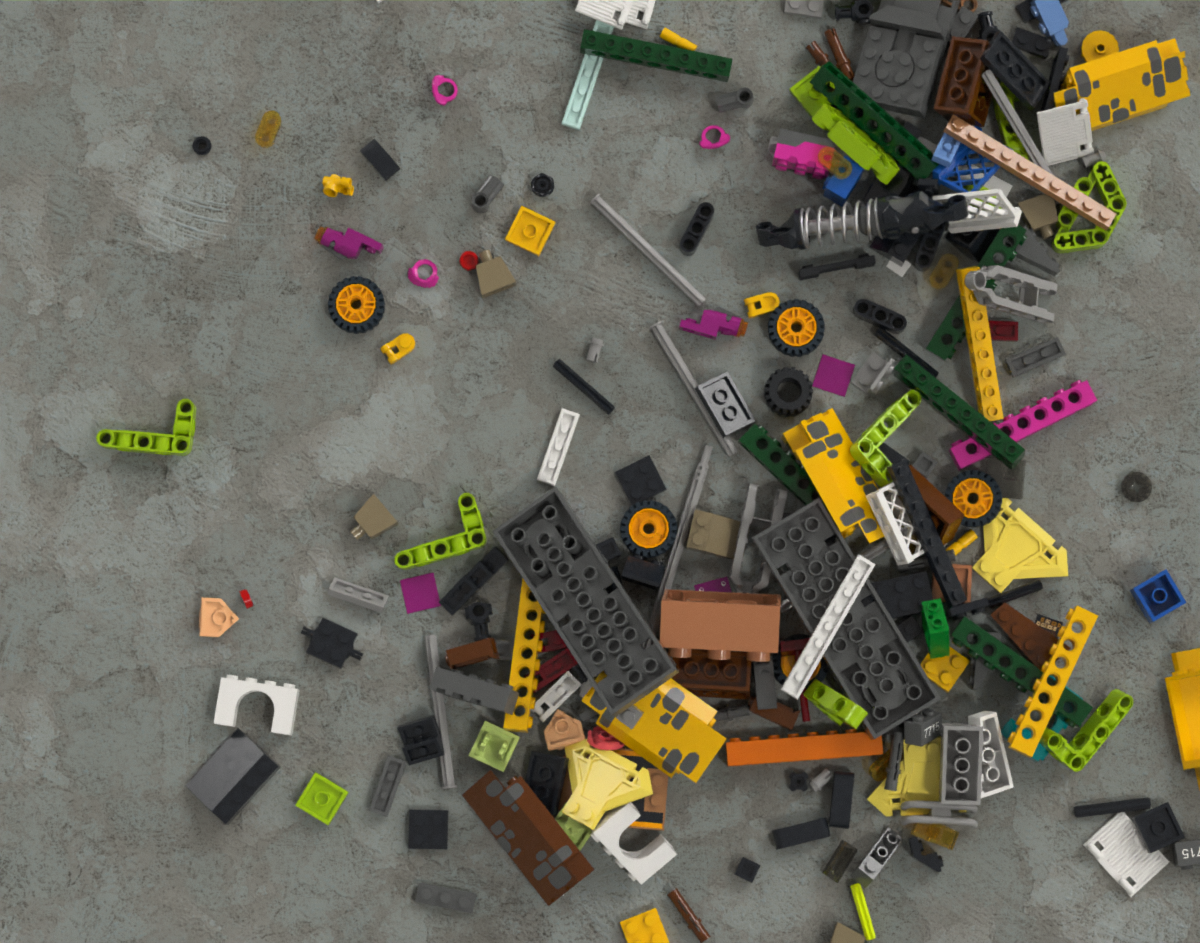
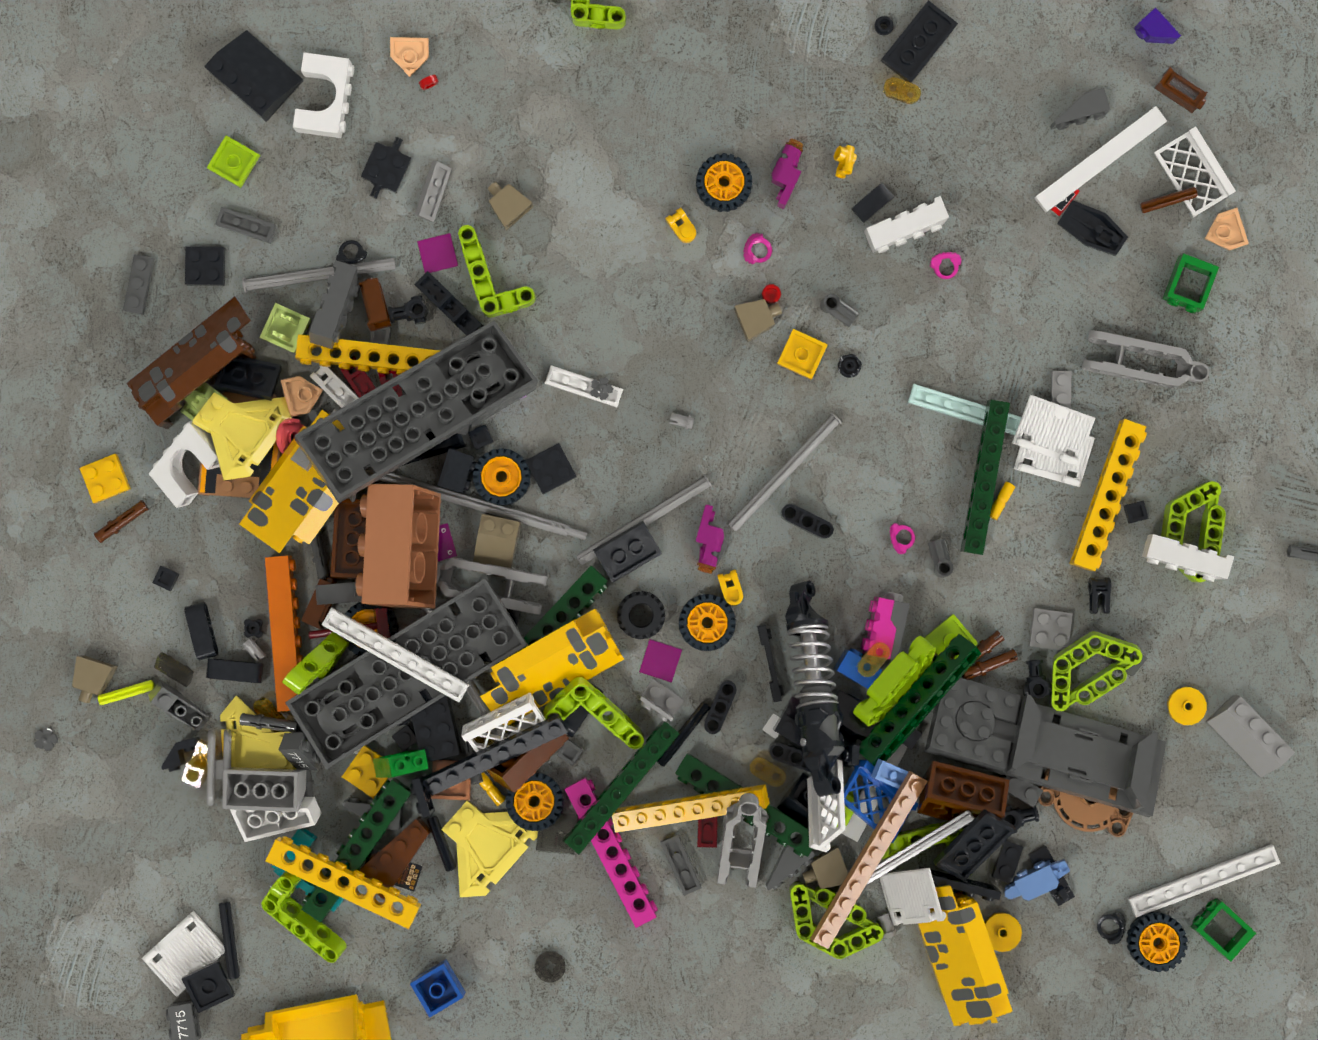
camera: 85 degrees right, 5 degrees up
(220, 111) = (919, 42): none -> black plate
(404, 126) = (906, 226): none -> white wedge
(421, 740) = (290, 256): black slope -> none
(422, 669) = (361, 254): none -> black piece
(561, 428) = (601, 389): none -> dark grey plant
(583, 386) = (645, 410): black axle -> none

